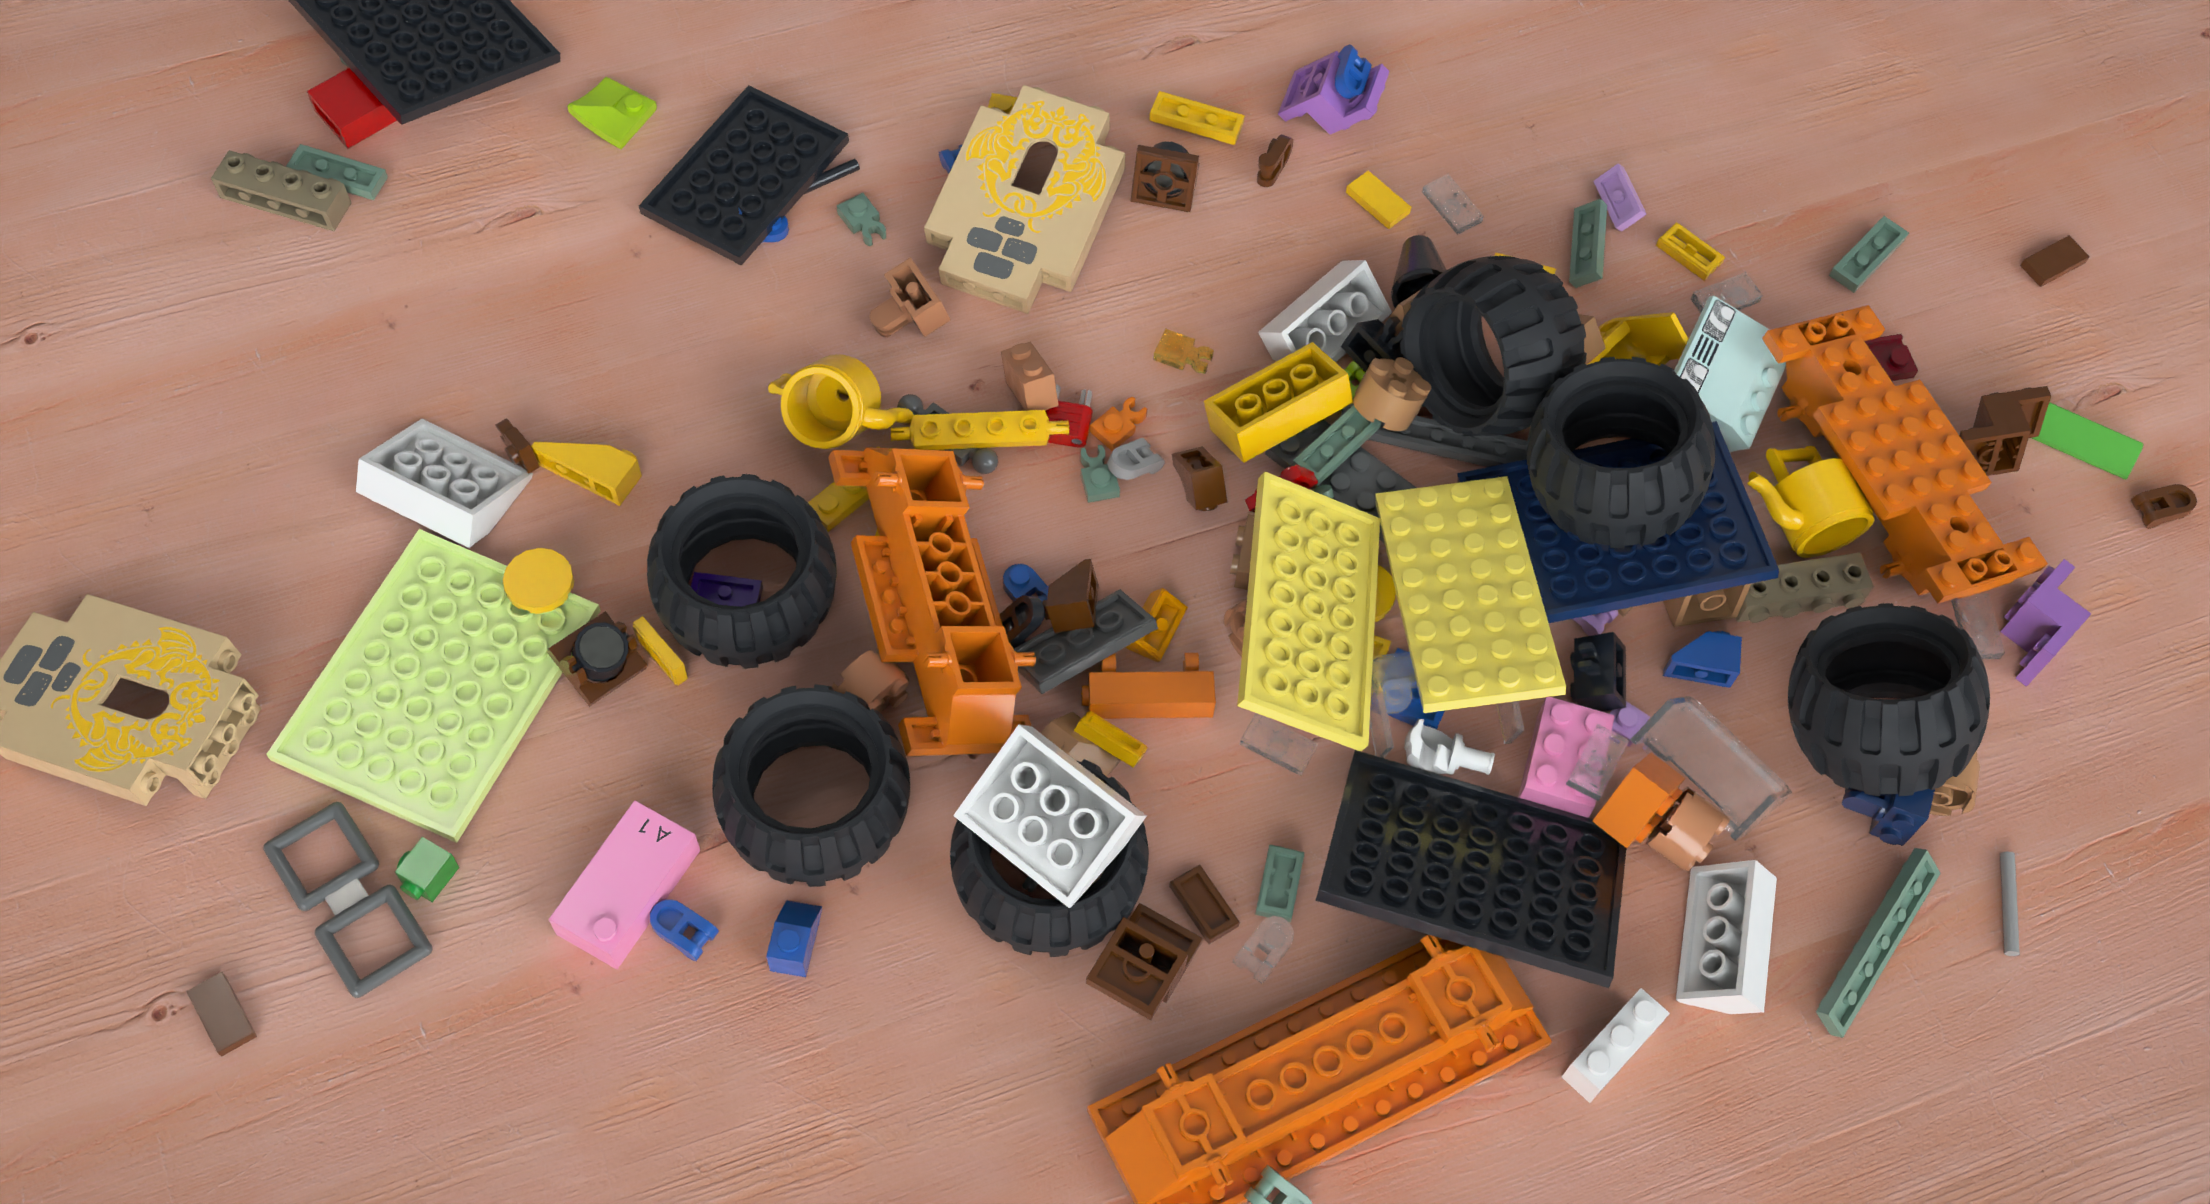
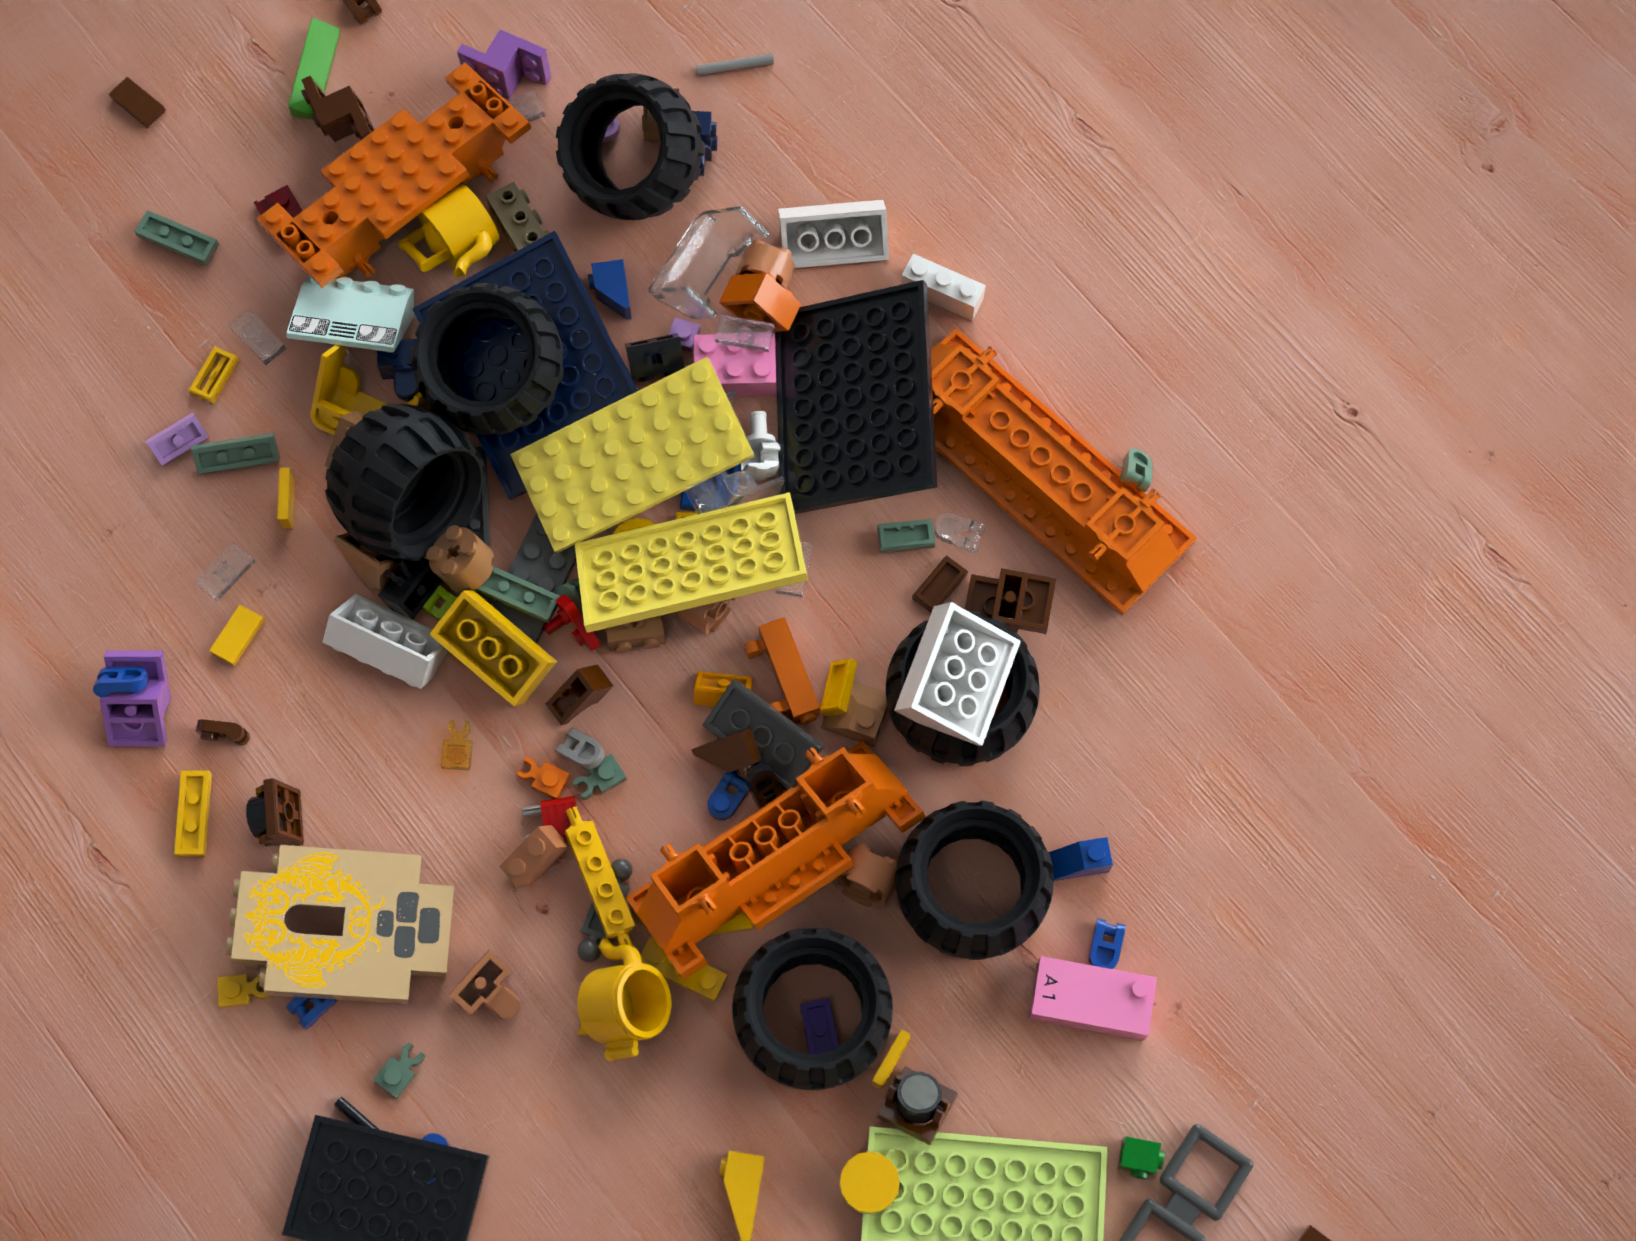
camera: 105 degrees left, 10 degrees up
(1416, 268) = (317, 574): black cone -> none
(1878, 943) = (808, 142): sand green plate -> none

